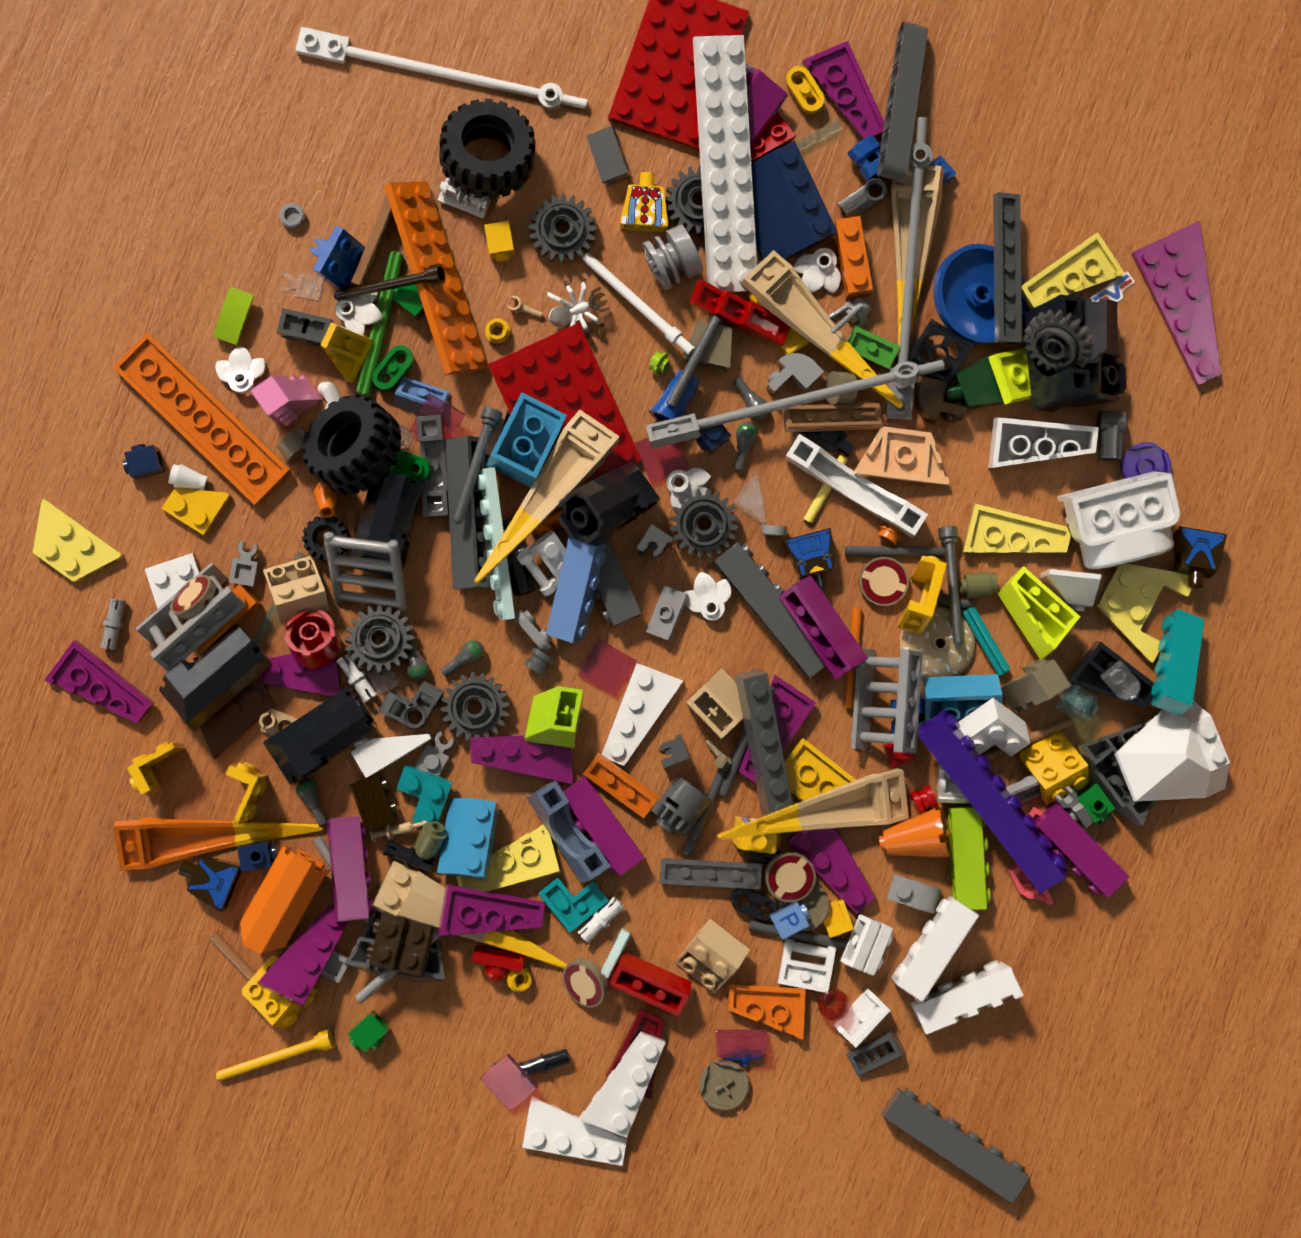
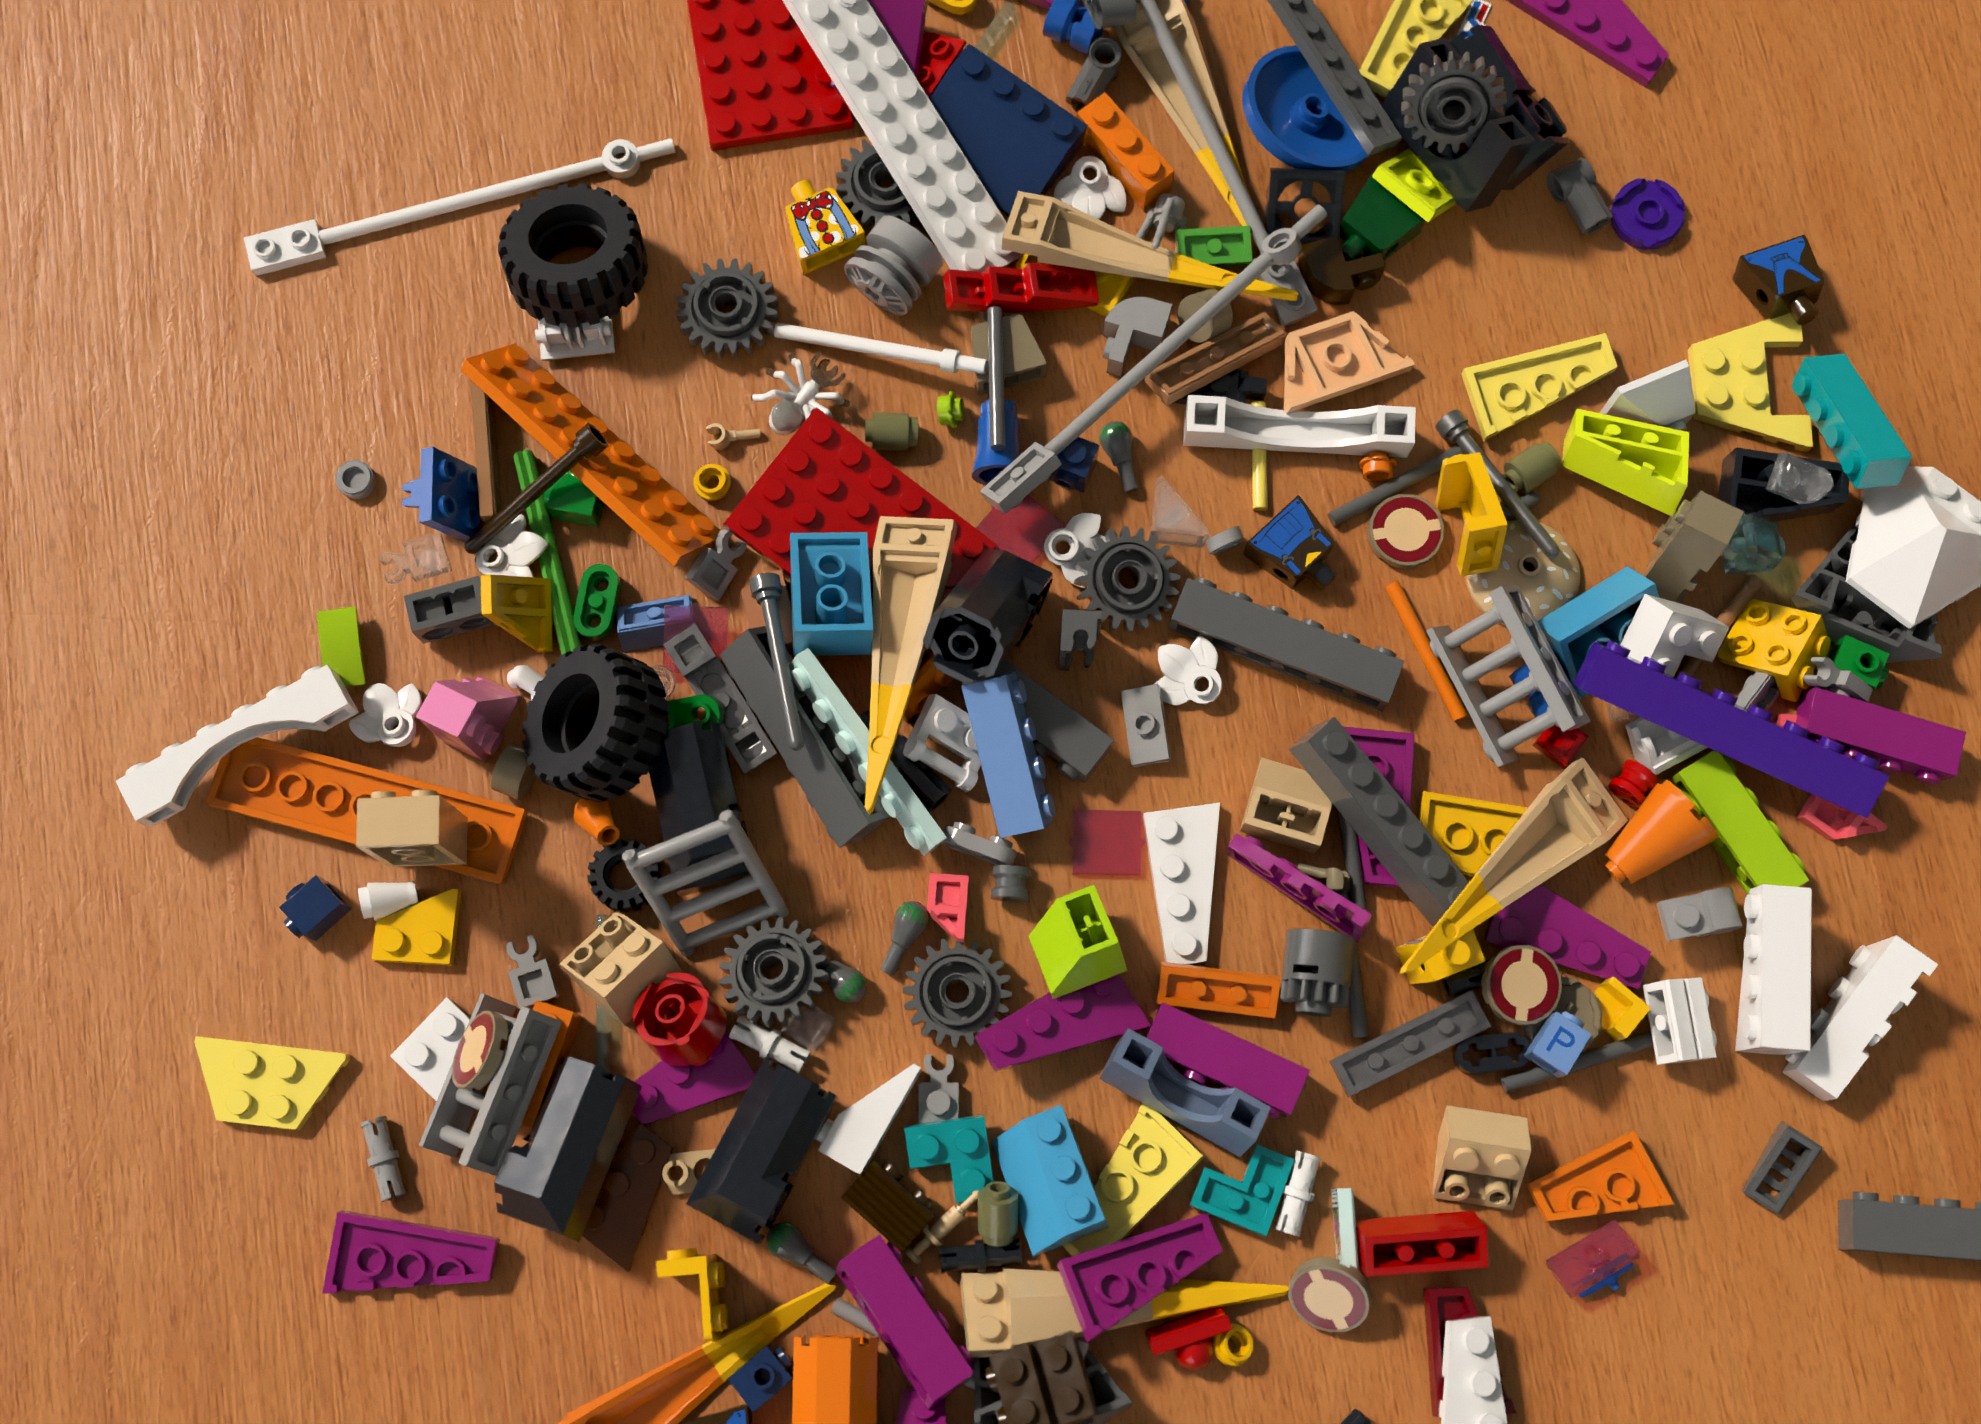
camera: 25 degrees left, 10 degrees down
(95, 346) = (166, 783): none -> white arch
(141, 773) = (538, 1354): yellow bracket -> none
(217, 451) = (411, 829): none -> tan brick
(399, 707) = (853, 1053): dark grey piece -> none
(470, 385) = (713, 567): none -> light grey plate
(498, 654) = (949, 902): none -> coral slope
(499, 240) = (652, 365): yellow brick -> none
(609, 156) = (738, 189): dark grey hinge -> none
(618, 357) = (891, 431): none -> olive brick
(678, 751) = (1267, 895): dark grey hinge -> none
(703, 762) = (1303, 889): none -> magenta wing
(723, 1084) = (1602, 1333): dark tan tile -> none
(750, 397) = (1093, 391): dark grey piece -> none
(806, 974) = (1620, 1110): white plate -> none
(823, 627) = (1367, 625): magenta brick -> none
(842, 1009) = (1699, 1131): clear red piece -> none
(862, 1017) = (1733, 1127): white hinge -> none
(986, 641) = (1584, 535): teal axle -> none
(1031, 441) = (1487, 252): white wedge -> none
(1123, 519) = (1669, 279): white brick -> none

